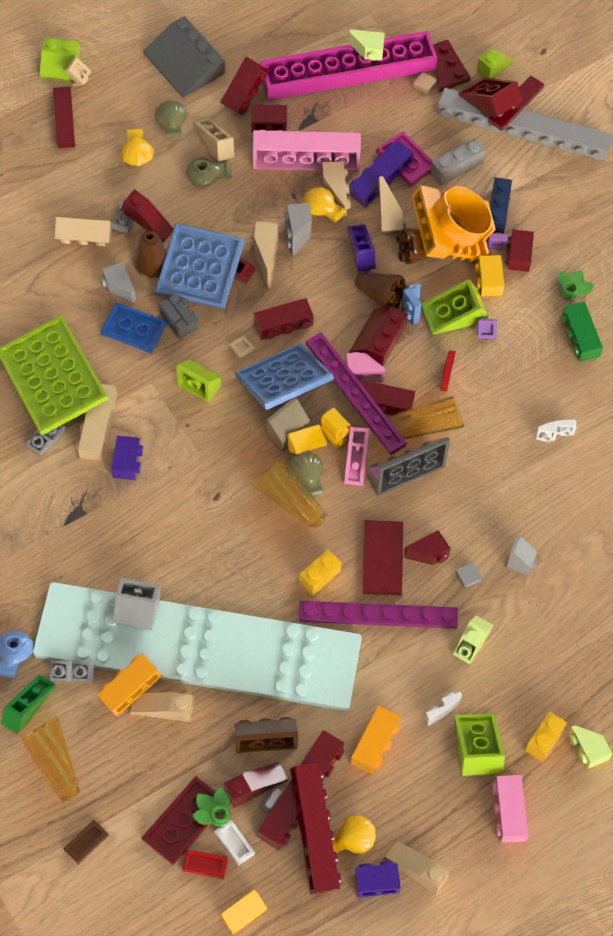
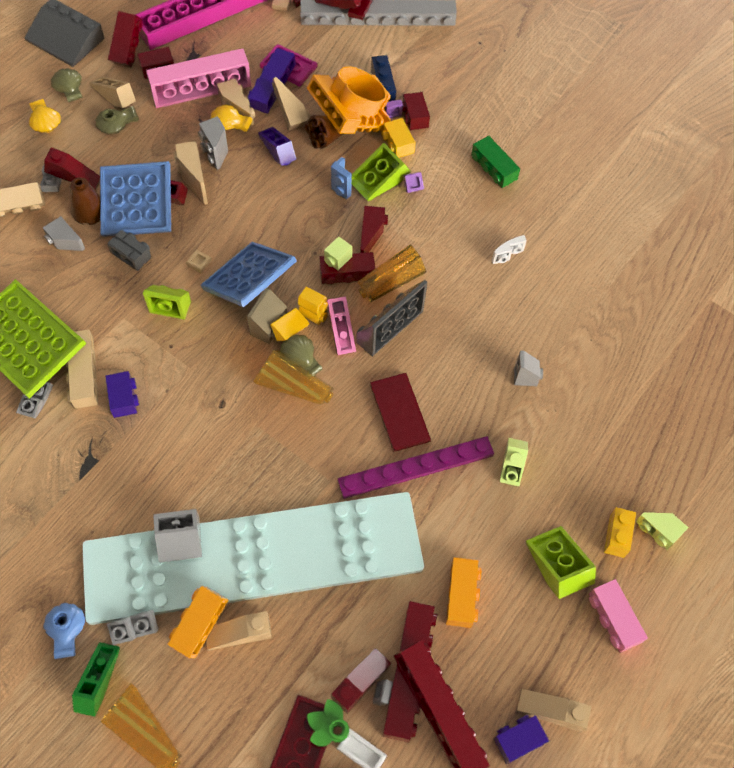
camera: 20 degrees left, 0 degrees up
(133, 327) = (90, 272): blue tile -> none
(266, 735) = (354, 625): reddish brown slope -> none
(283, 319) = (229, 225): dark red brick -> none
(320, 572) = (347, 445): yellow brick -> none
(355, 835) = (482, 699): yellow animal -> none
(356, 394) = (323, 270): magenta plate -> none
(365, 367) = (313, 246): bright pink slope -> none
(378, 382) = (338, 253): none -> yellowish green brick
(381, 333) = (321, 214): dark red slope -> none
(382, 288) = (309, 173): reddish brown cone -> none
(426, 364) = (373, 226): none -> dark red slope
(429, 549) = (440, 390): dark red slope -> none
(447, 370) = (393, 227): red tile -> none
(448, 704) = (516, 531): white slope -> none
(457, 161) = (334, 54): light grey brick -> none
(468, 575) = (484, 402): light grey tile -> none
(574, 283) = (471, 127): bright green plate -> none

